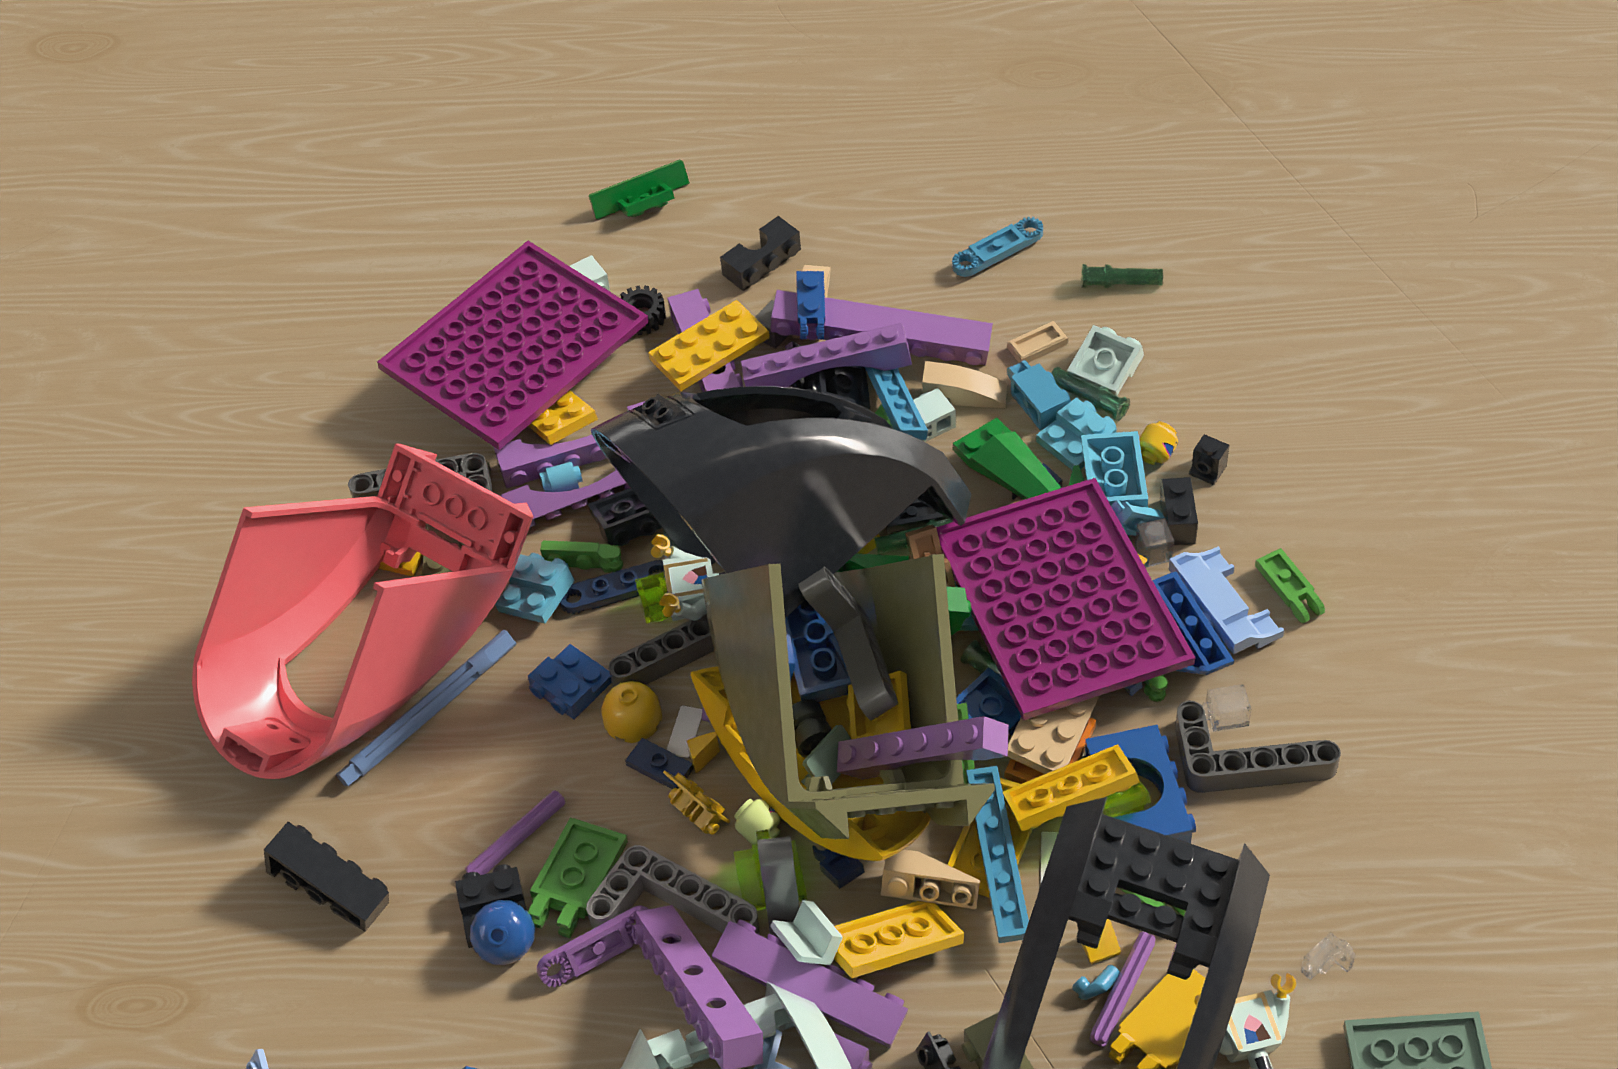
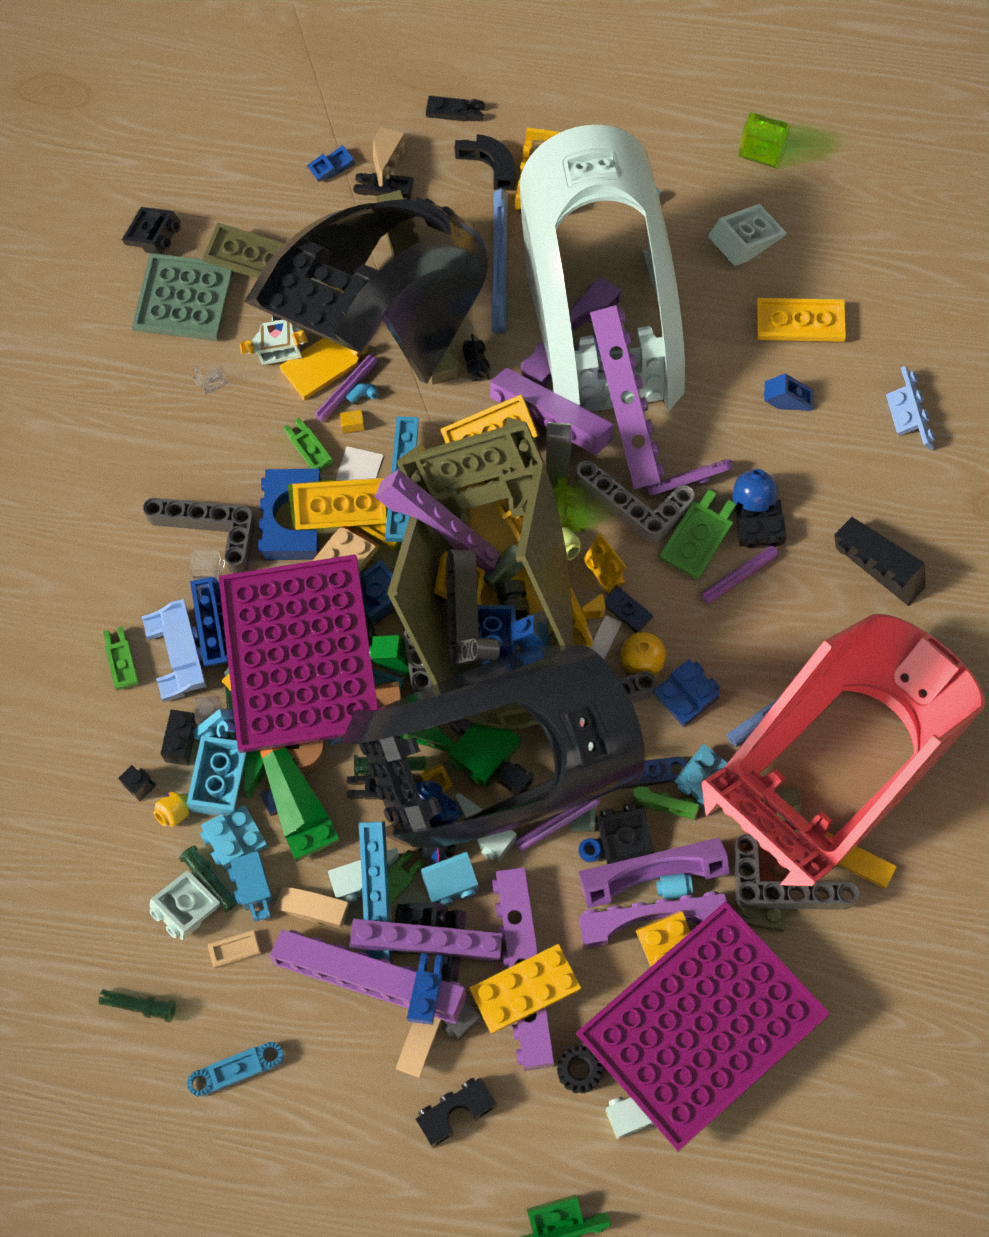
camera: 170 degrees left, 15 degrees up
(810, 936) = (537, 421): light aqua panel -> none

